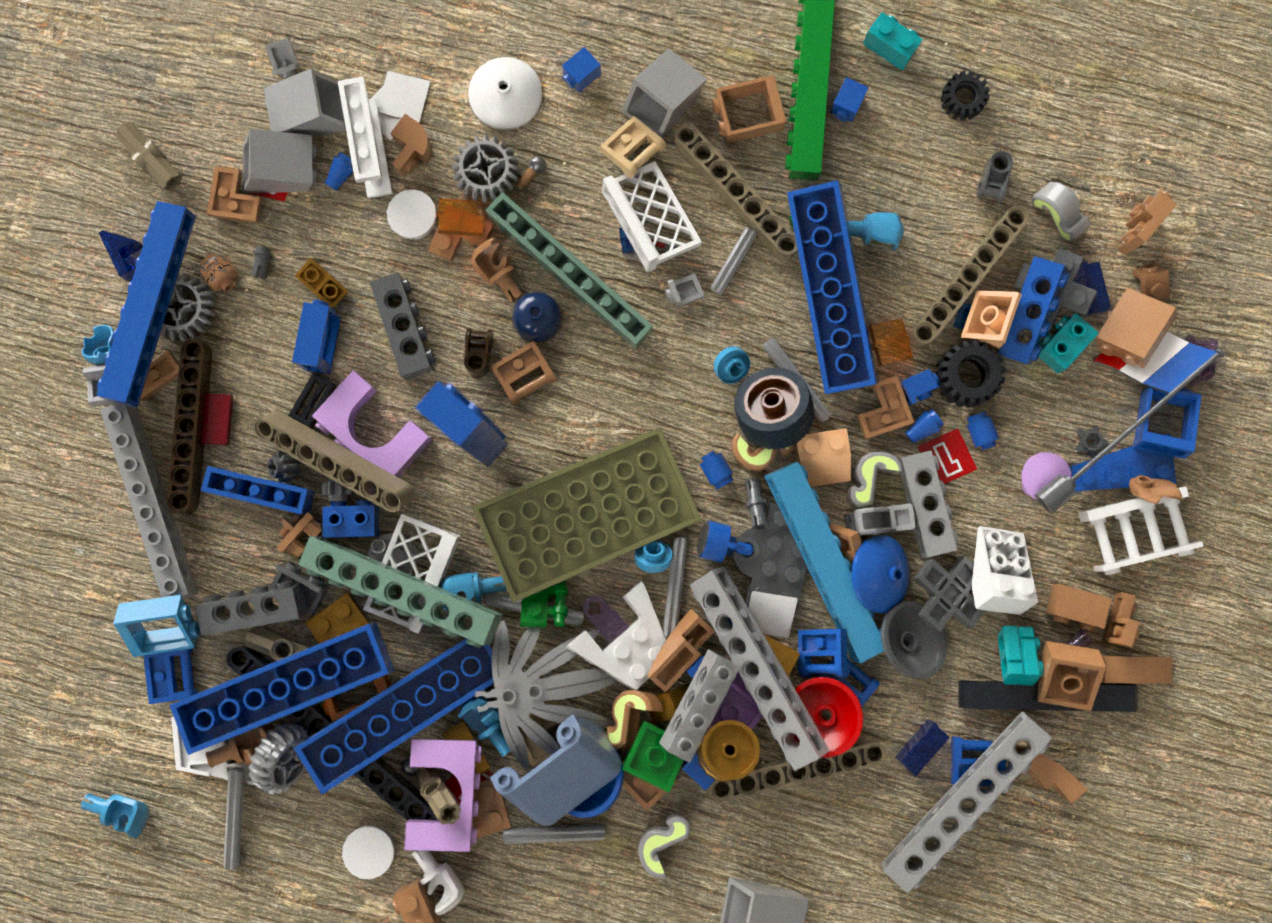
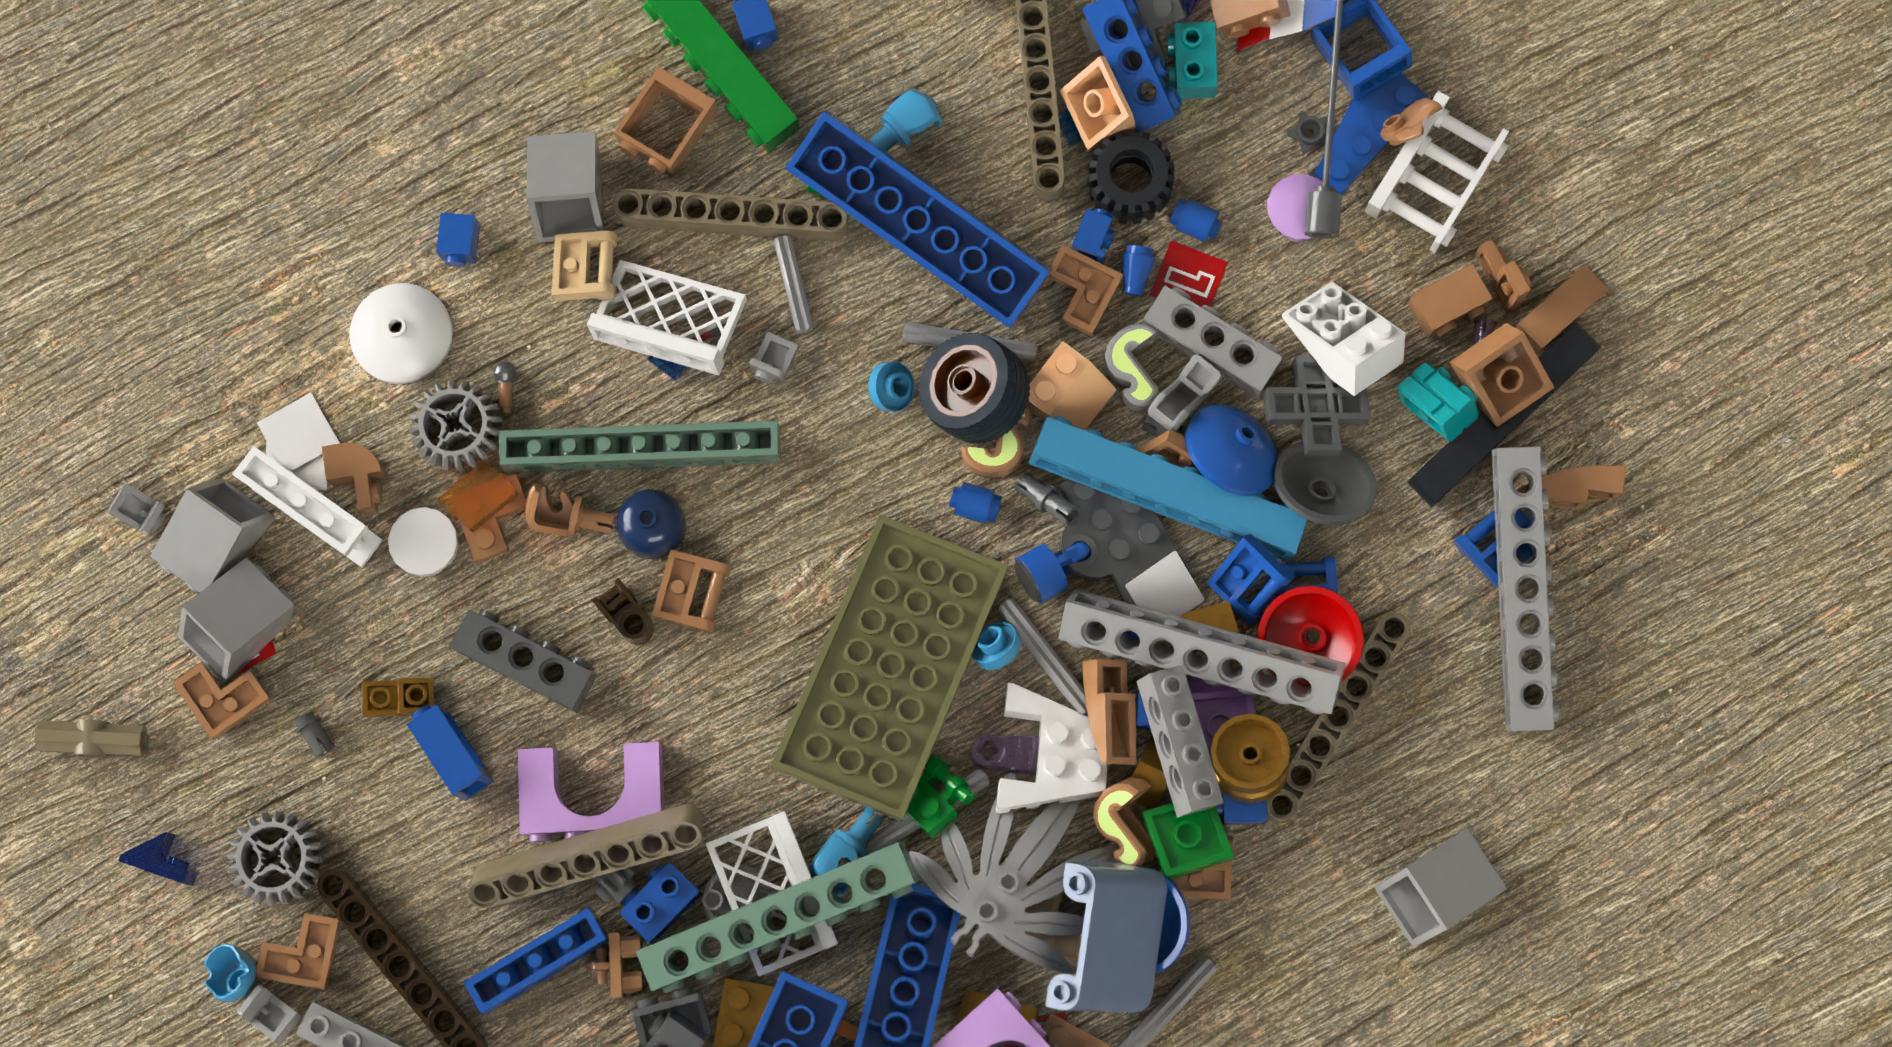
camera: 40 degrees left, 5 degrees down
(146, 304) = (243, 881): blue brick -> none
(217, 419) = (422, 935): dark red tile -> none
(218, 273) = (280, 786): medium nougat head -> none
(283, 467) = (538, 913): dark grey gear -> none
(303, 396) = (514, 815): black tile -> none
(339, 171) = (307, 566): blue cone -> none
(463, 422) = (693, 679): blue brick -> none
(484, 722) = (989, 968): dark azure piece -> none
(659, 838) = (1268, 914): light grey animal -> none
(890, 341) = (1024, 218): clear orange piece -> none
(922, 747) = (1435, 579): clear blue panel -> none

